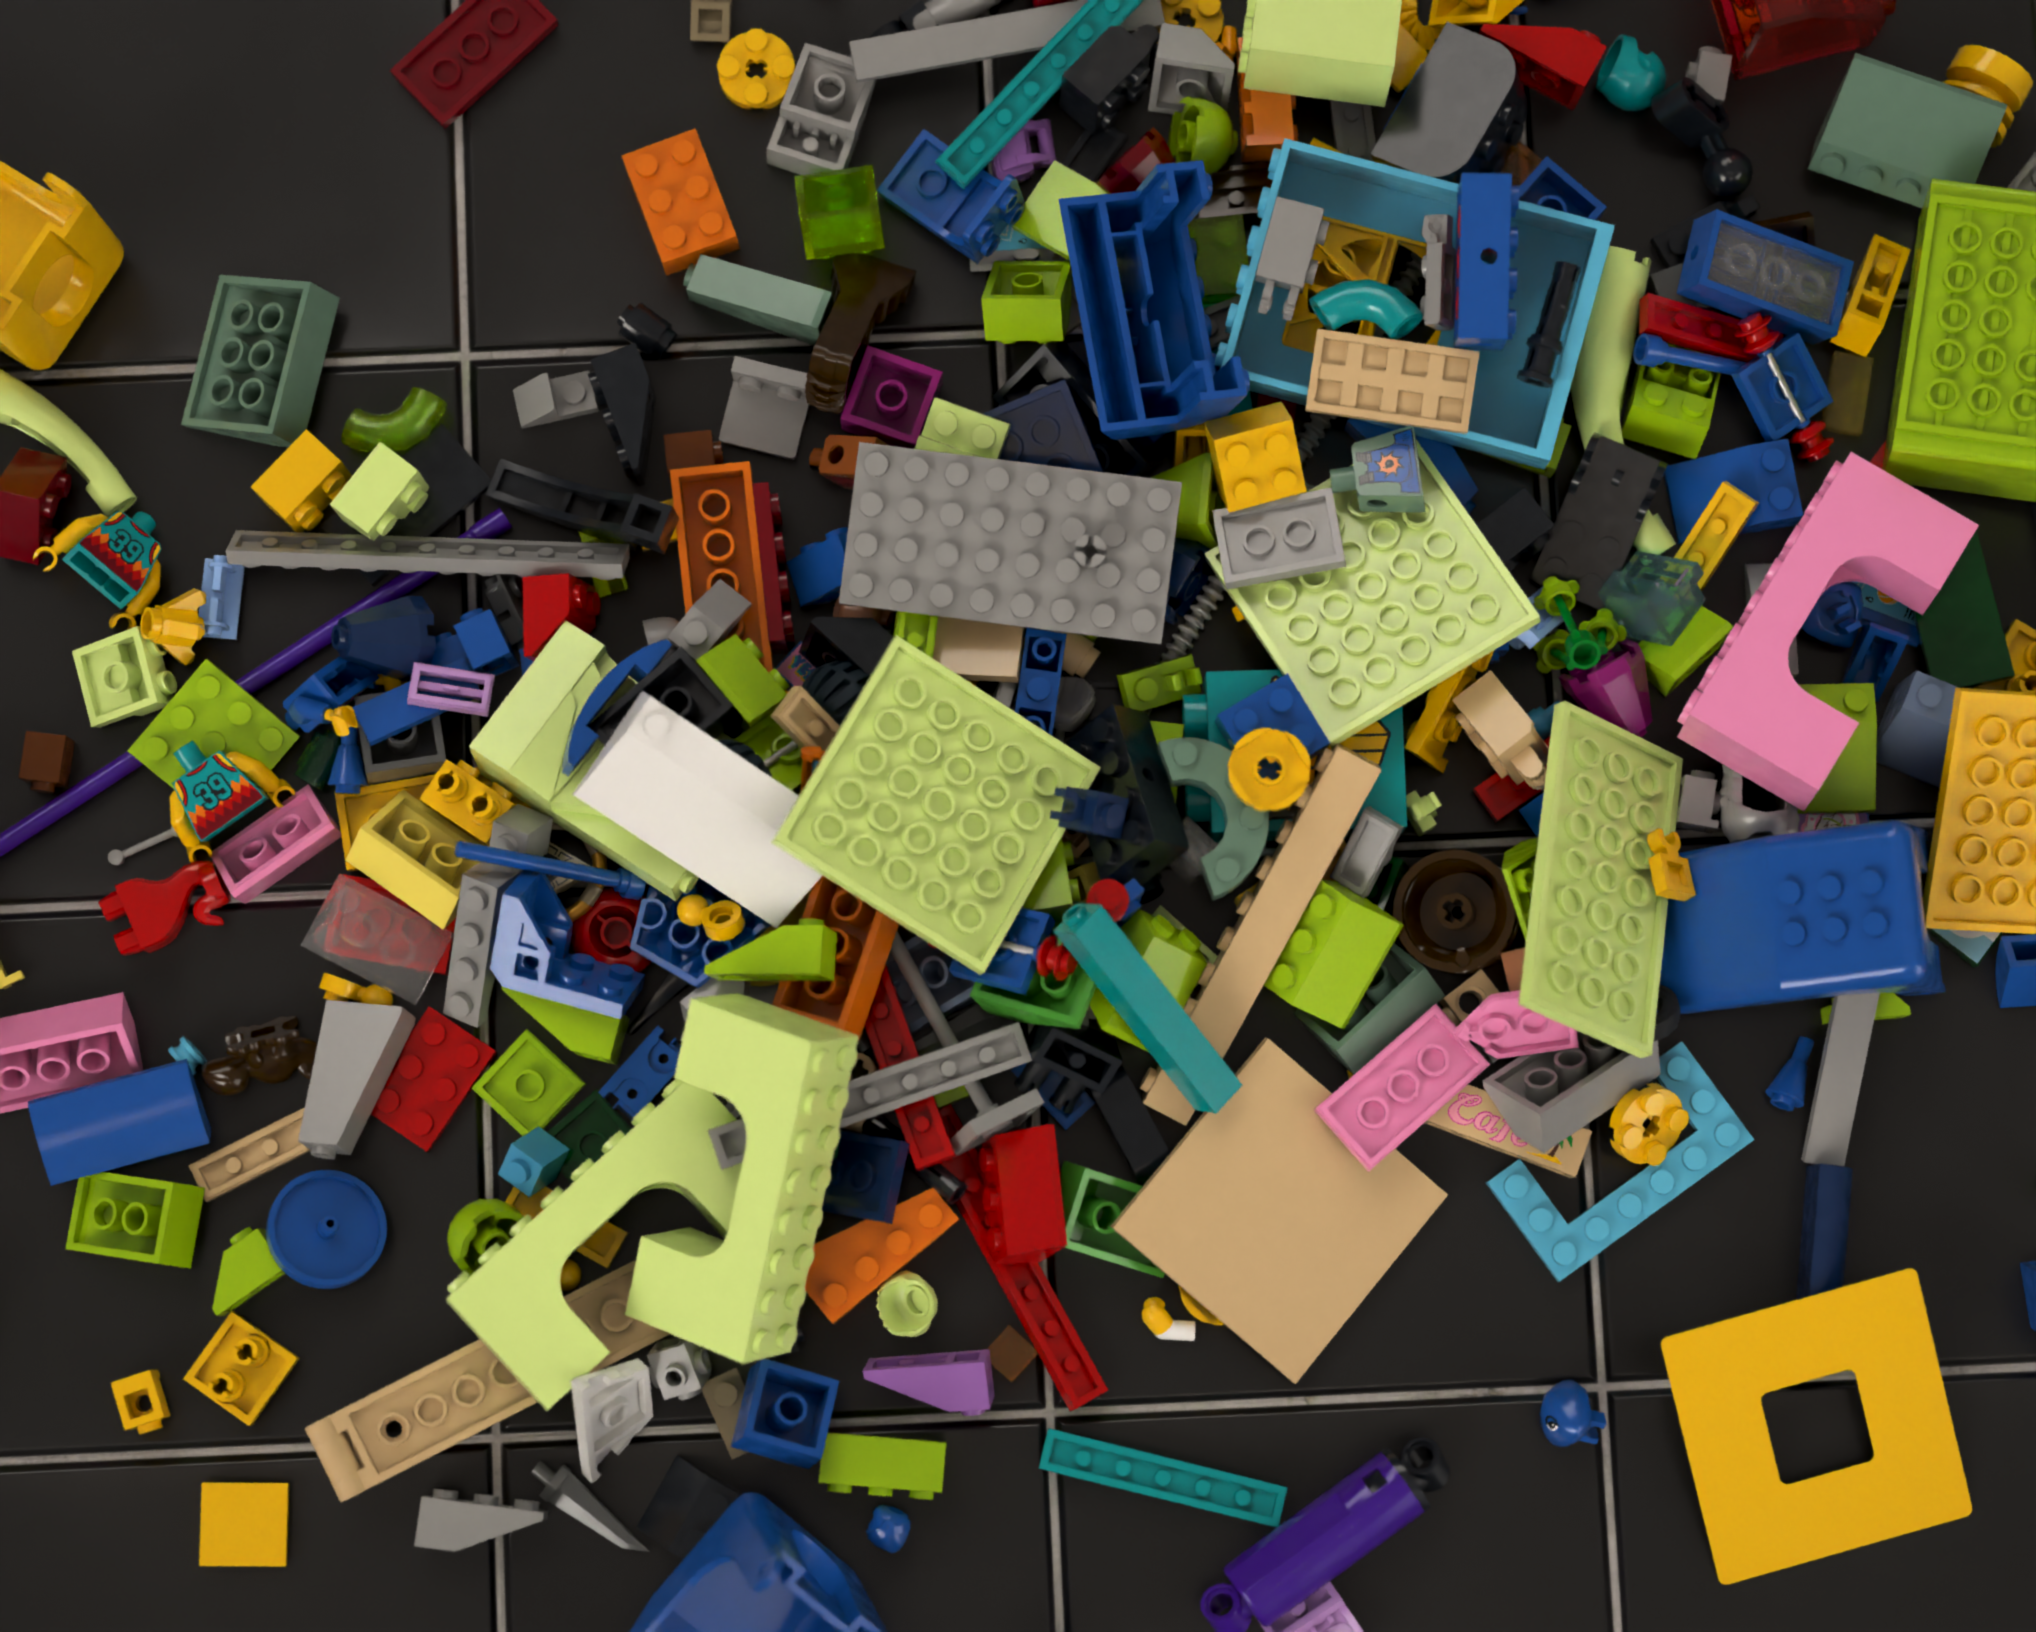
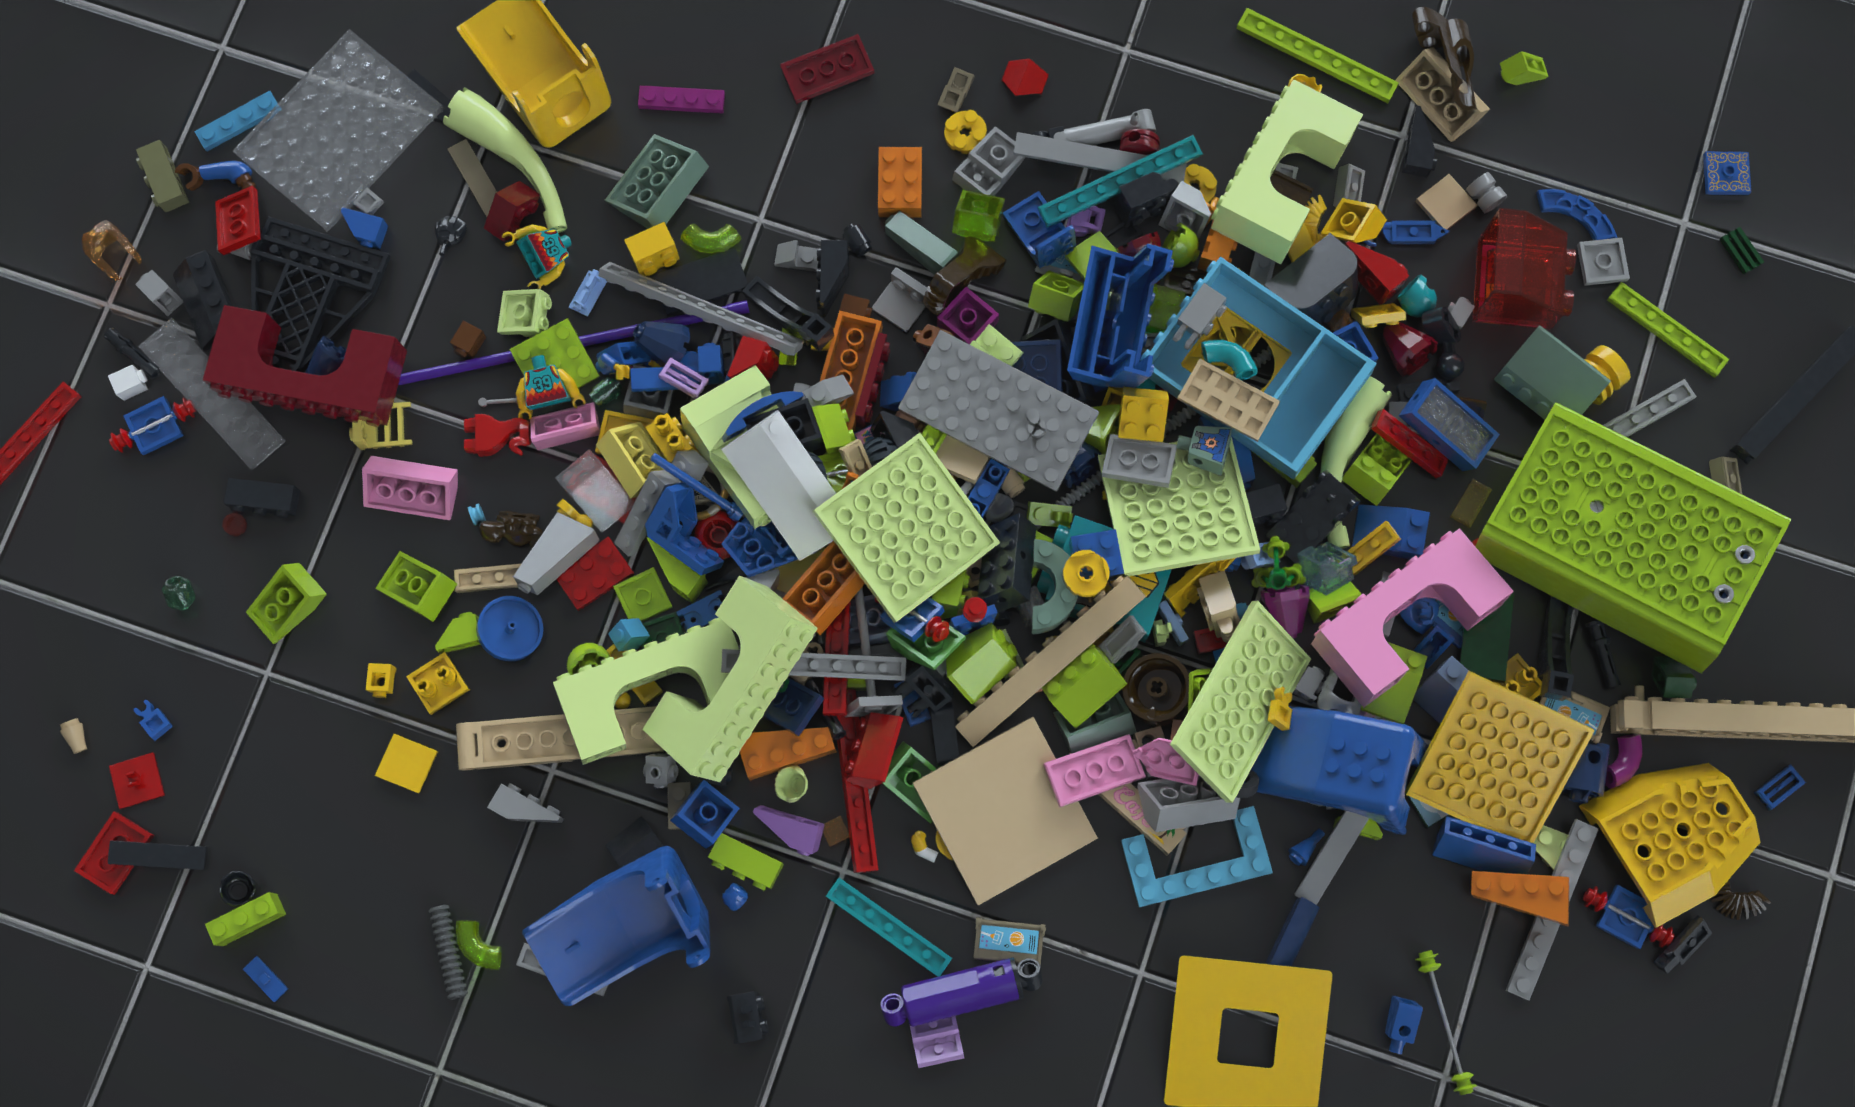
camera: 25 degrees right, 5 degrees down
(119, 1122) = (428, 533): blue slope -> none
(176, 625) = (559, 296): yellow rock -> none
(242, 195) = (681, 99): none -> magenta plate
(348, 766) = (615, 401): blue cone -> none
(380, 493) = (688, 268): yellowish green slope -> none
(575, 1499) = (579, 817): dark grey bar -> none
(610, 1411) = (615, 776): white wing -> none
(720, 920) = (772, 545): yellow plate -> none
(784, 954) = (796, 574): lime slope -> none
(1091, 812) = (985, 561): dark blue brick -> none
(1147, 1007) = (974, 673): teal brick -> none
(1365, 1416) = (1005, 940): none -> door
(1429, 781) = (1176, 622): none -> light blue plate
(1439, 272) = (1274, 354): light grey hinge -> none
(1485, 234) = (1298, 355): blue brick -> none
(1546, 342) = (1316, 410): black pin -> none
(1568, 1416) = (1115, 979): blue piece -> none
(1577, 129) = (1372, 315): none -> yellow plate
(1645, 167) = (1408, 347): none -> dark red cone
(1652, 350) = (1374, 440): blue piece -> none
(1666, 1124) = (1225, 849): yellow plate -> none
(1782, 387) = (1437, 485): blue plate -> none
(1871, 295) = (1502, 456): yellow slope -> none

